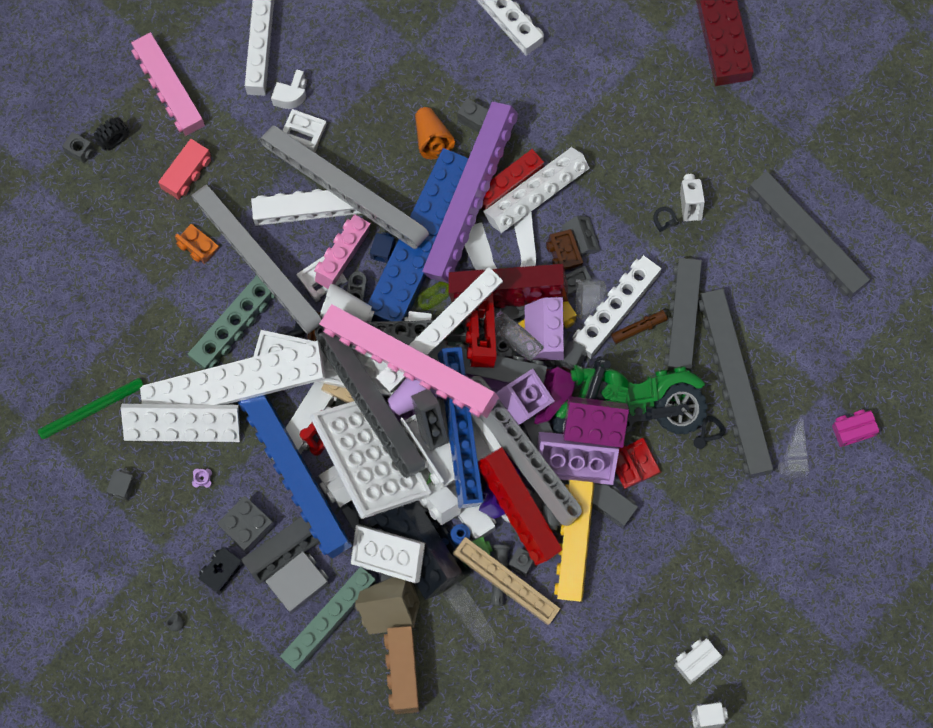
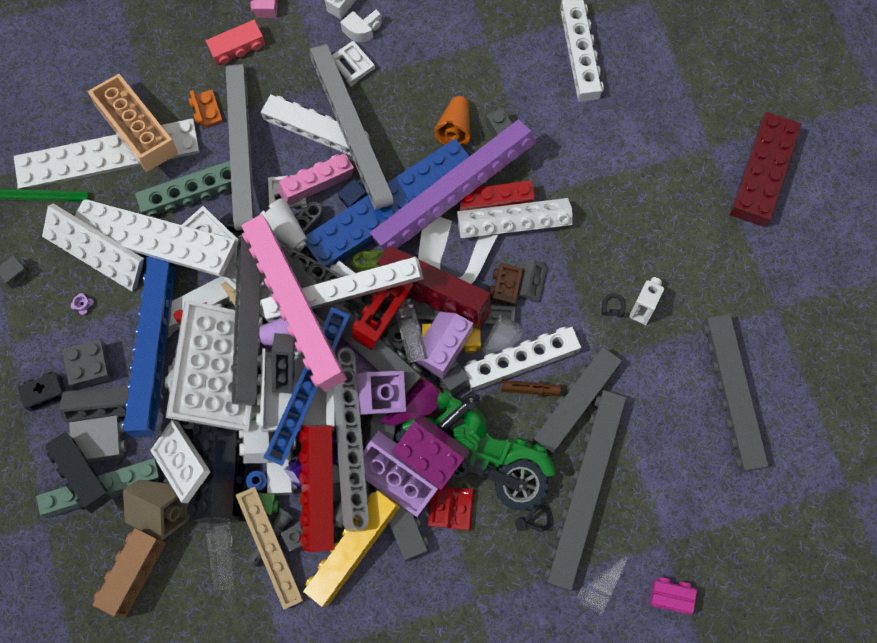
camera: 30 degrees right, 0 degrees up
(132, 335) = (93, 157): none -> white plate
(144, 292) = (133, 122): none -> light nougat brick
(307, 613) = (78, 472): none -> black brick

